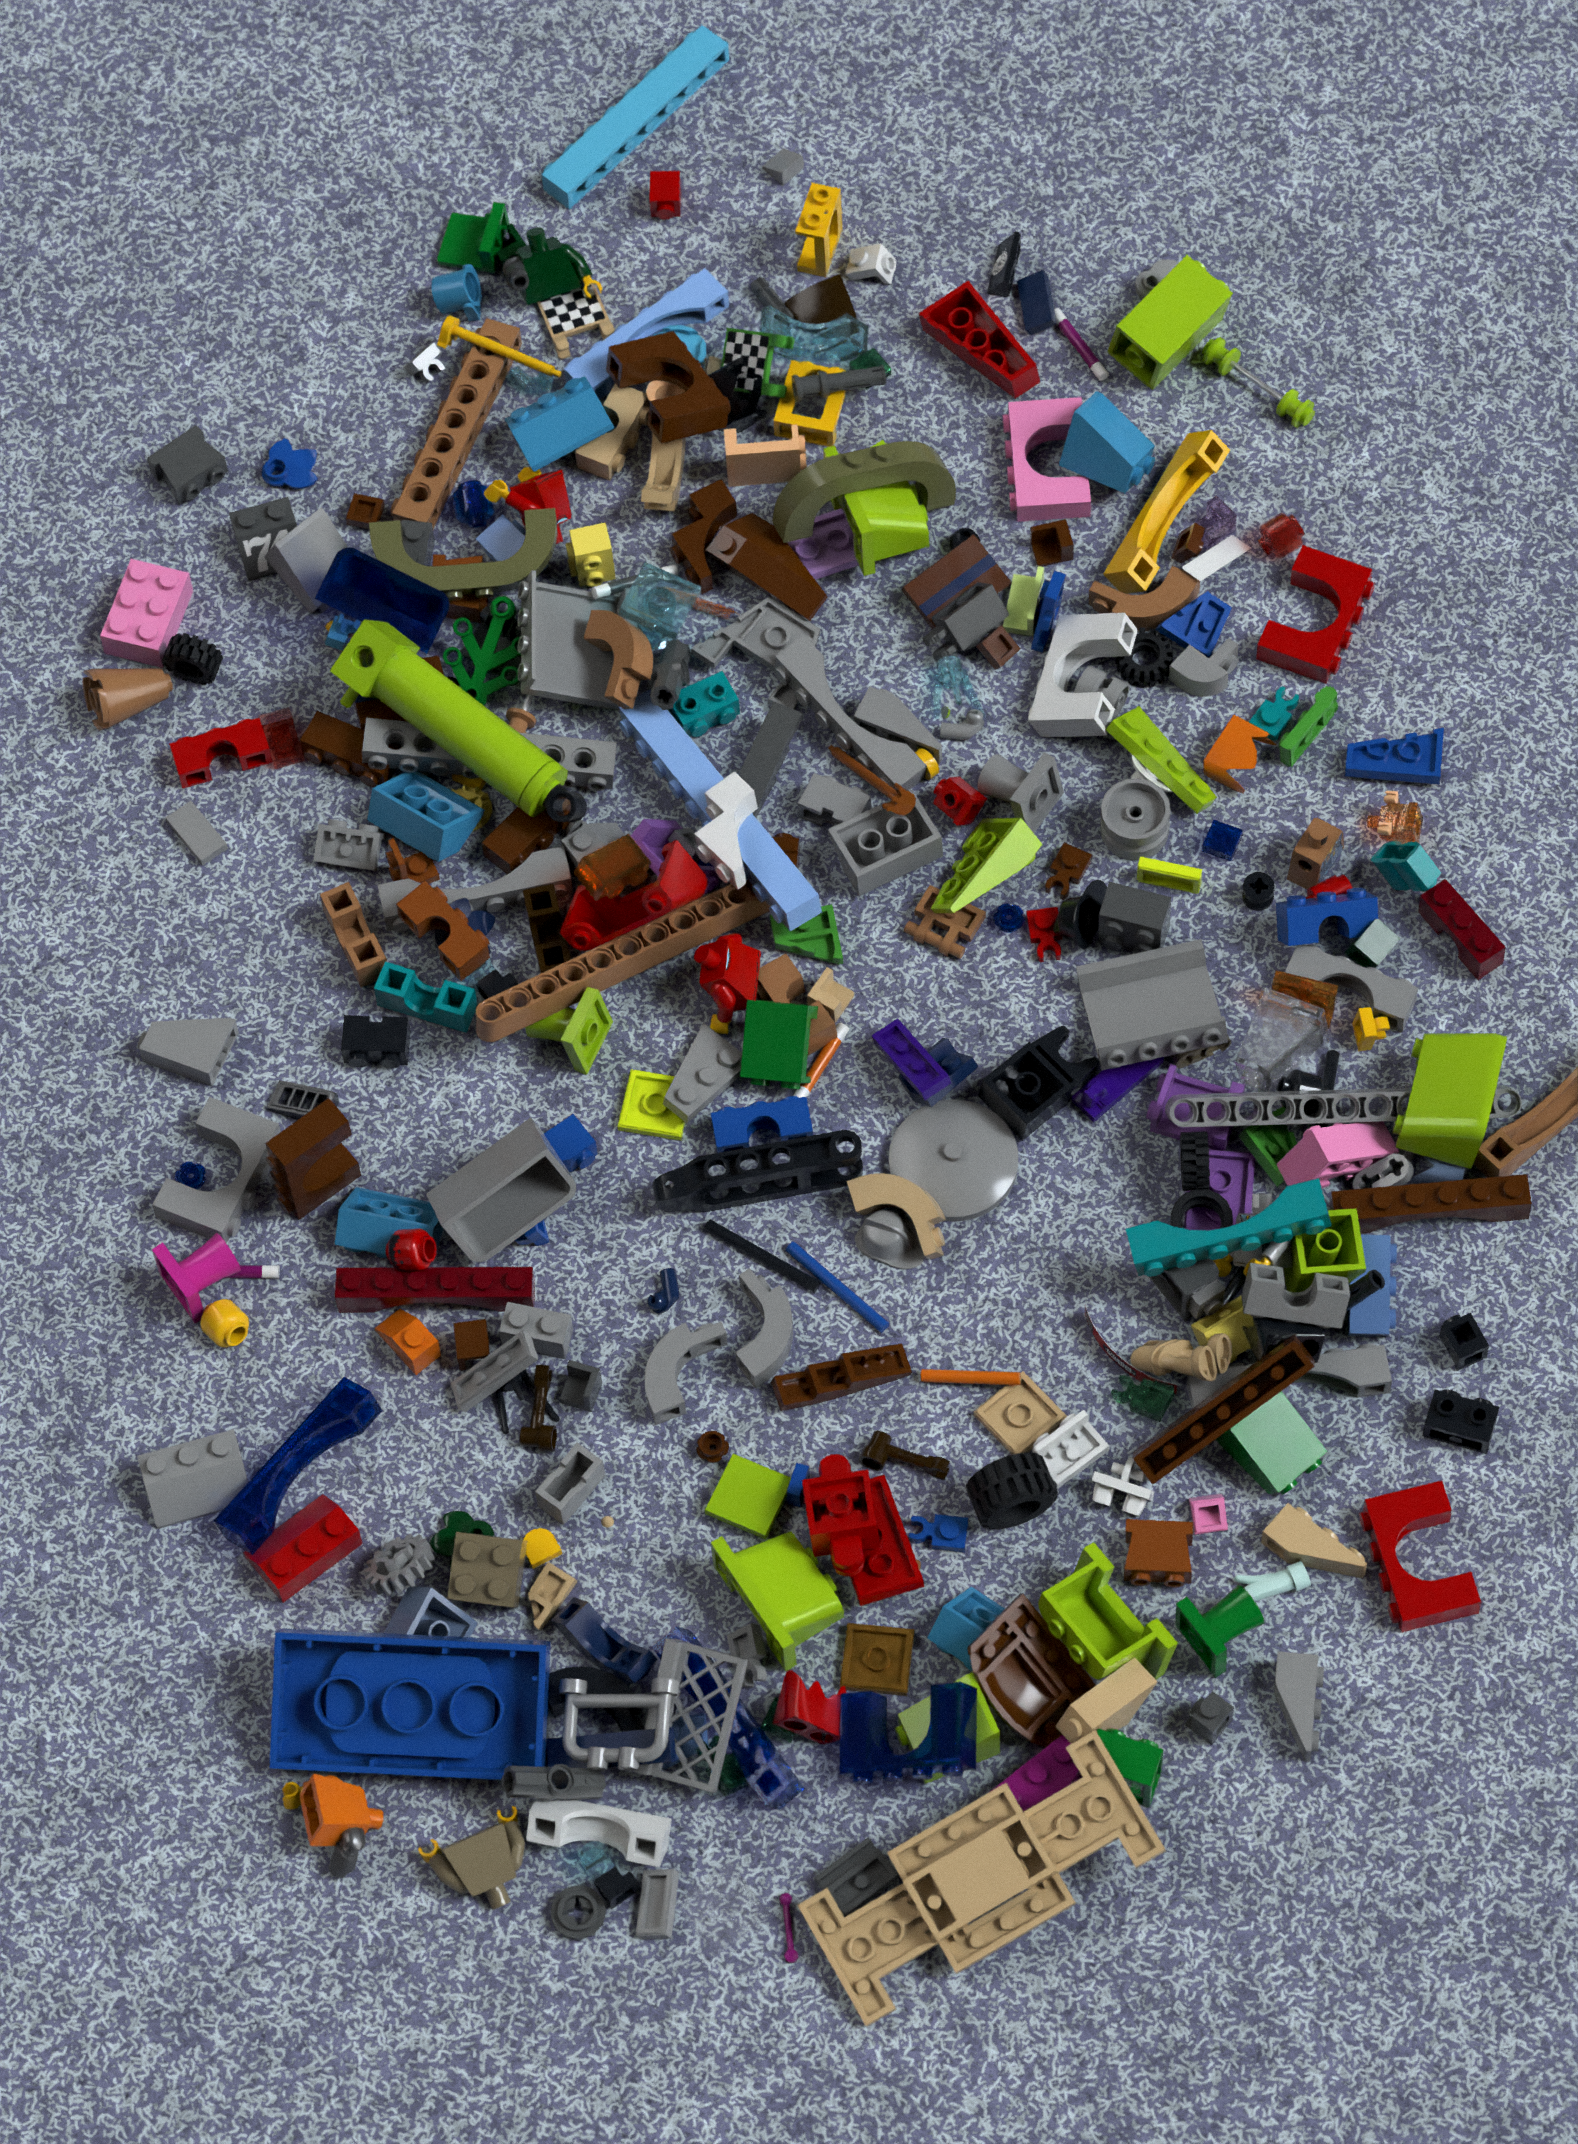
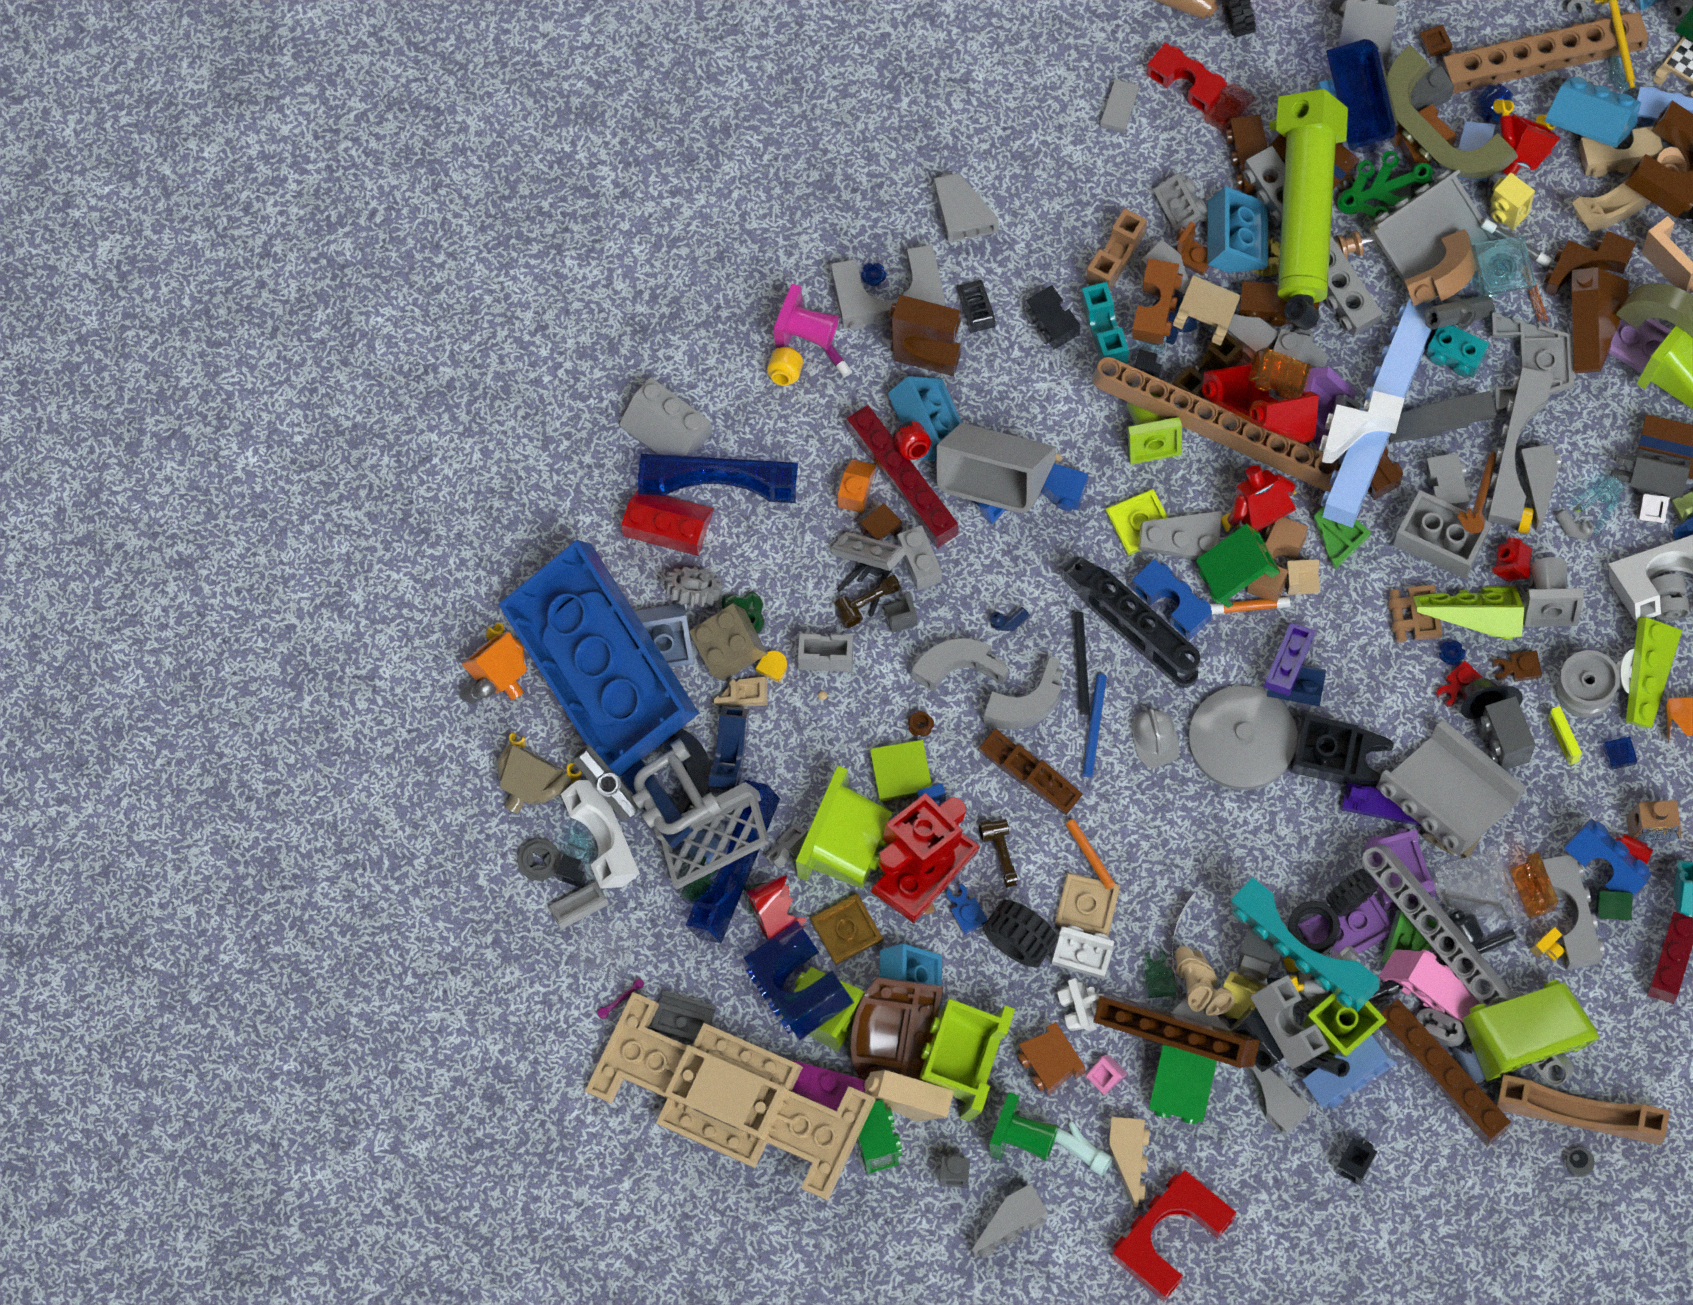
camera: 55 degrees right, 5 degrees up
(485, 886) = (1208, 304): none -> tan flag
(884, 1191) = (1187, 731): tan arch -> none
(1258, 899) = (1597, 808): black wheel -> none
(1461, 1420) = (1294, 1197): black brick -> none

